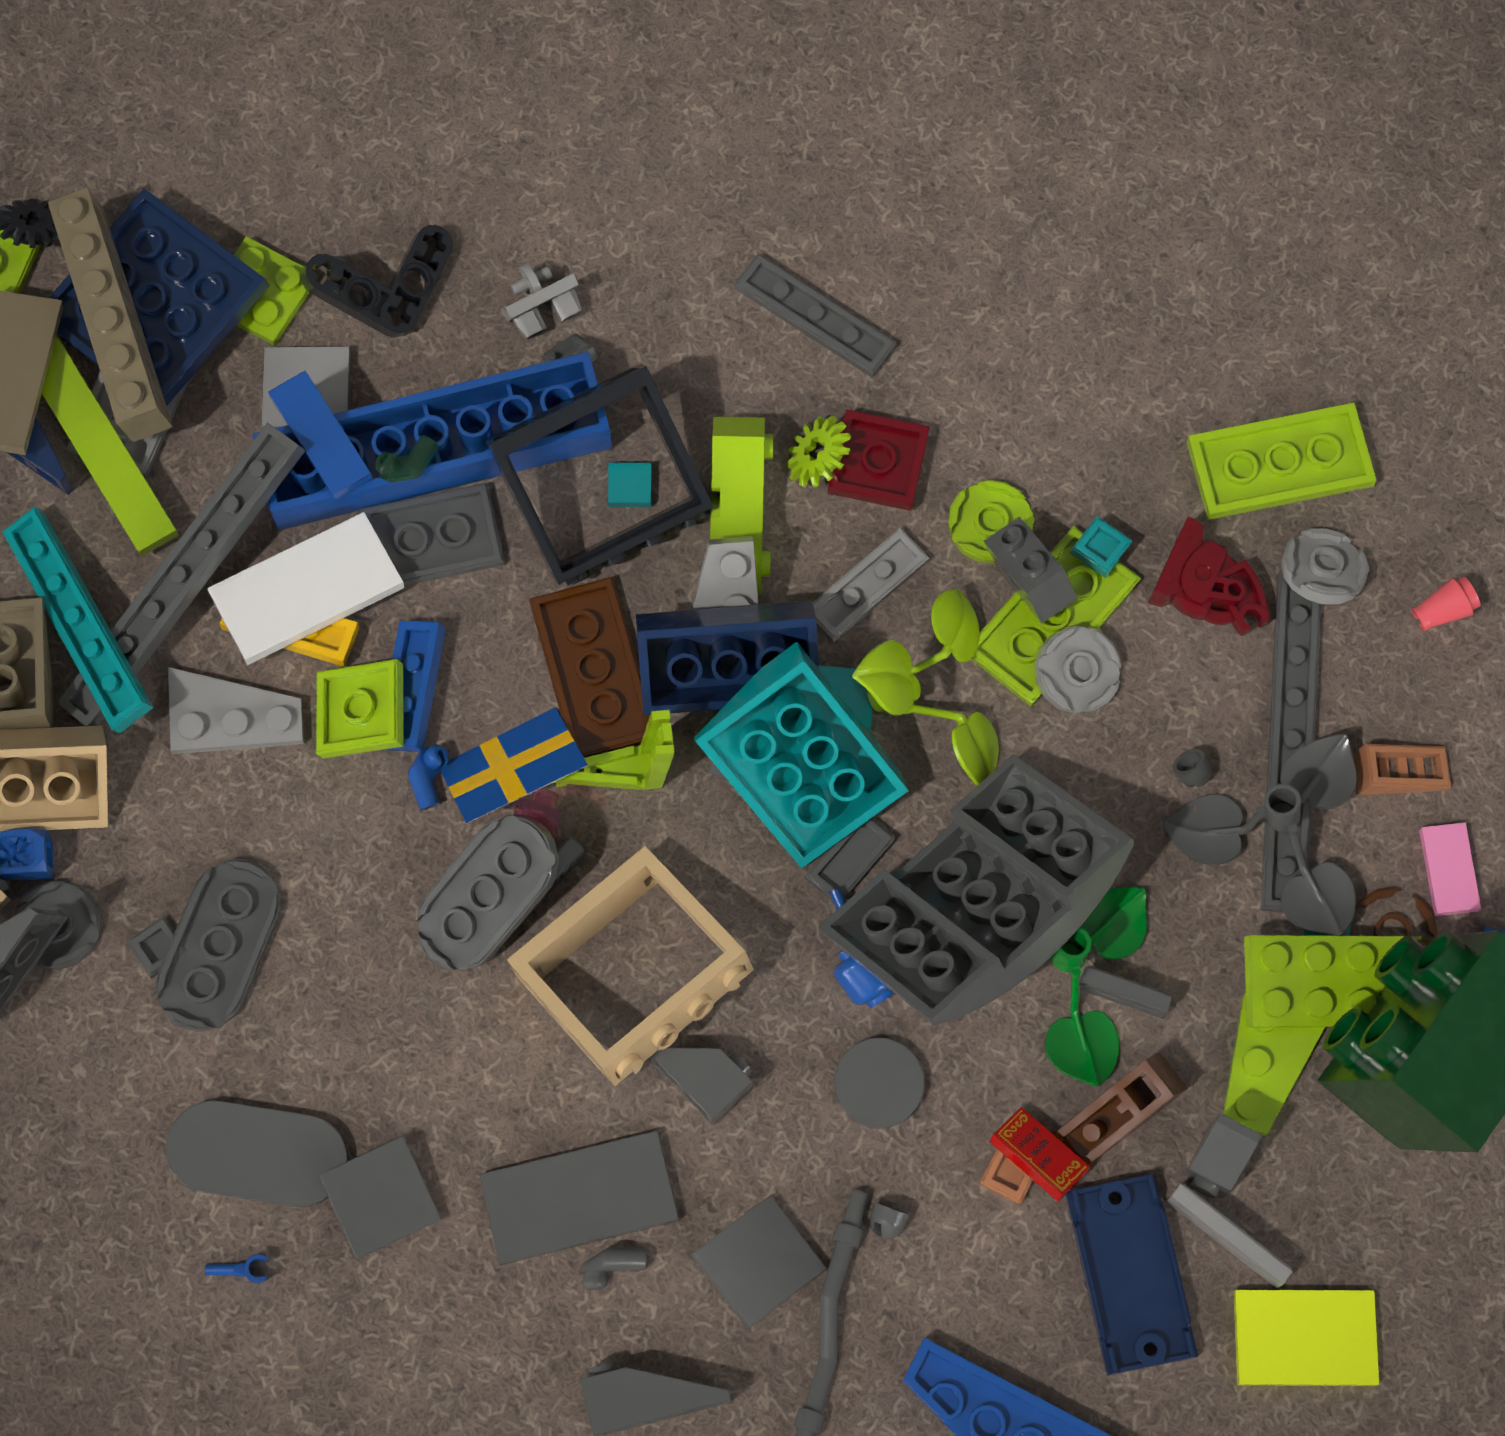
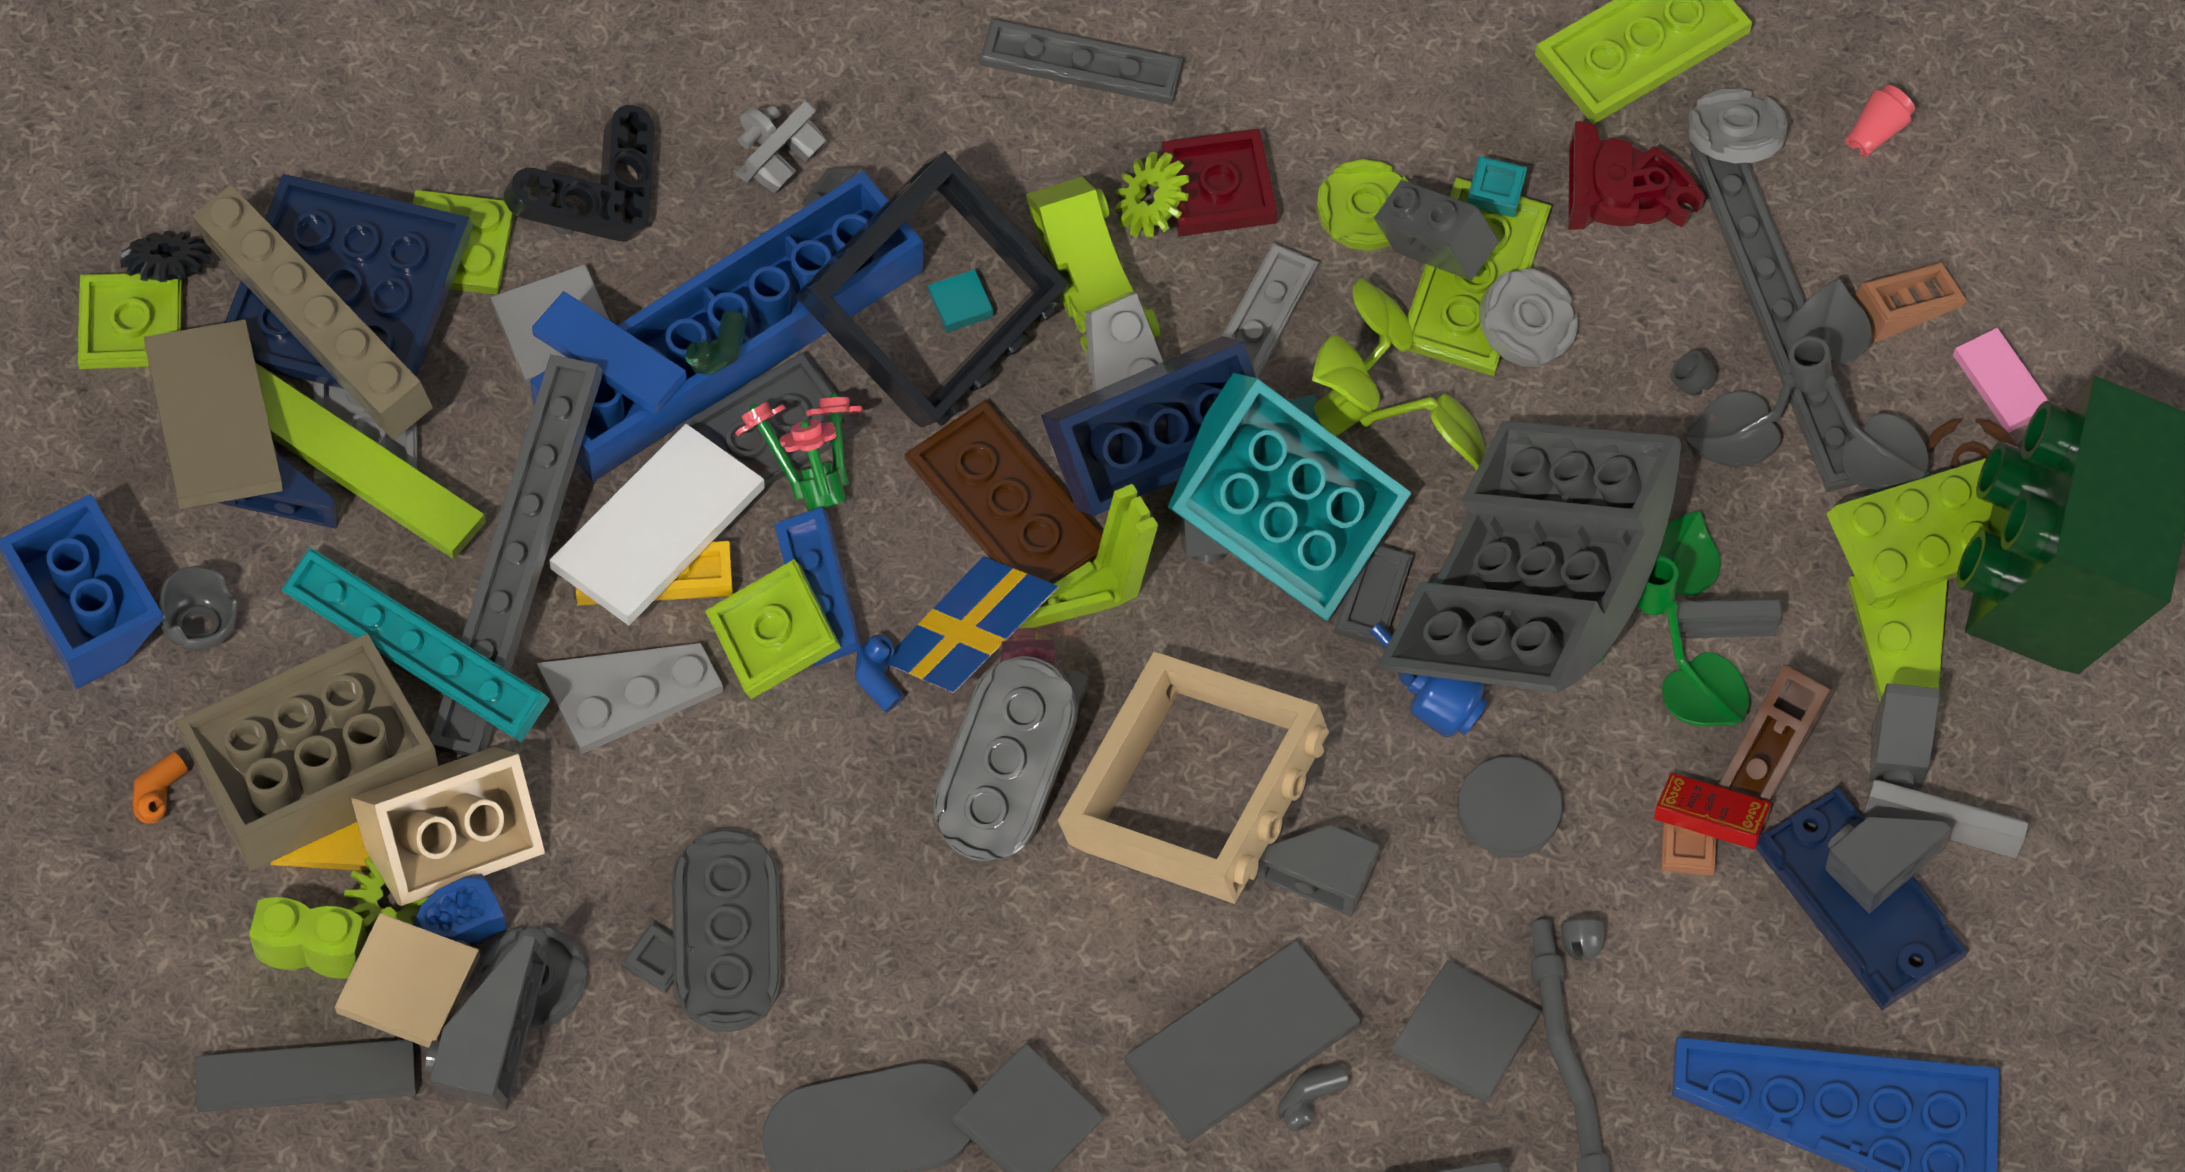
camera: 25 degrees left, 10 degrees down
(448, 598) = (820, 483): none -> plant
(1157, 1253) = (1883, 855): none -> dark grey slope
(1306, 1337) = (2068, 893): neon yellow tile -> none

